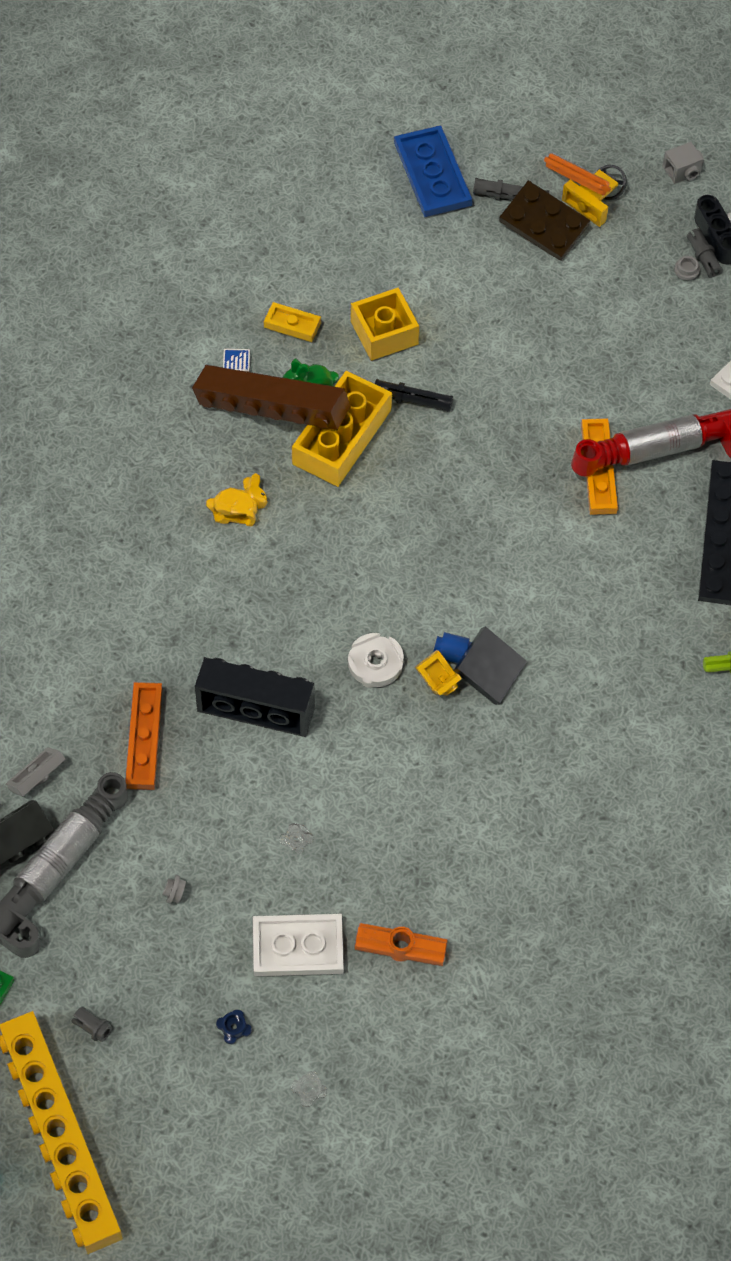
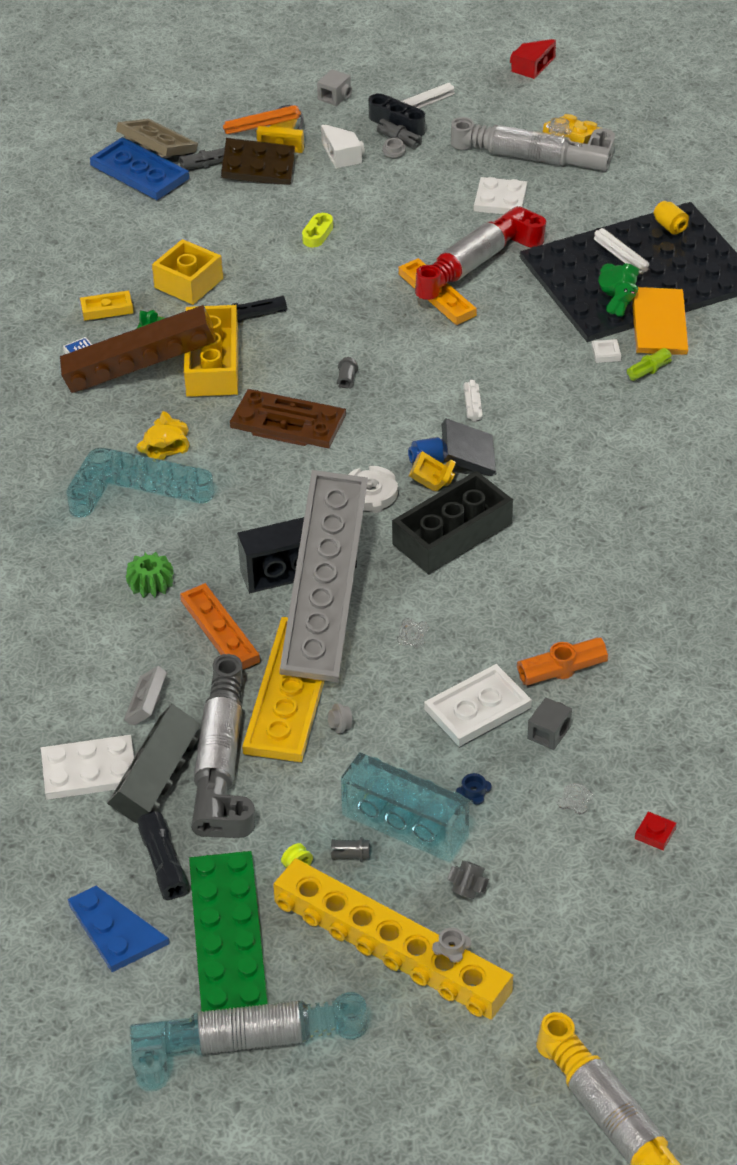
camera: 30 degrees left, 15 degrees down
(42, 1006) = (296, 851): none -> neon yellow bush
(89, 1165) = (455, 937): none -> light grey plate
(113, 647) = (149, 574): none -> bright green gear
(154, 1016) = (405, 807): none -> clear light blue brick
(157, 834) = (282, 710): none -> yellow plate
(158, 1114) = (468, 879): none -> dark grey gear
(184, 533) = (138, 473): none -> clear light blue beam
(245, 744) = (324, 576): none -> light grey plate
(342, 1001) = (549, 723): none -> dark grey brick
(352, 1162) = (655, 830): none -> red plate
(361, 539) = (287, 419): none -> reddish brown piece
(413, 741) = (452, 521): none -> pearl dark grey brick
(453, 511) = (347, 369): none -> dark grey pin
(471, 142) = (156, 137): none -> dark tan plate
(538, 612) = (472, 401): none -> white axle
(545, 334) = (326, 226): none -> neon yellow beam
(637, 242) = (342, 146): none -> white slope
(706, 622) = (606, 351): none -> white tile

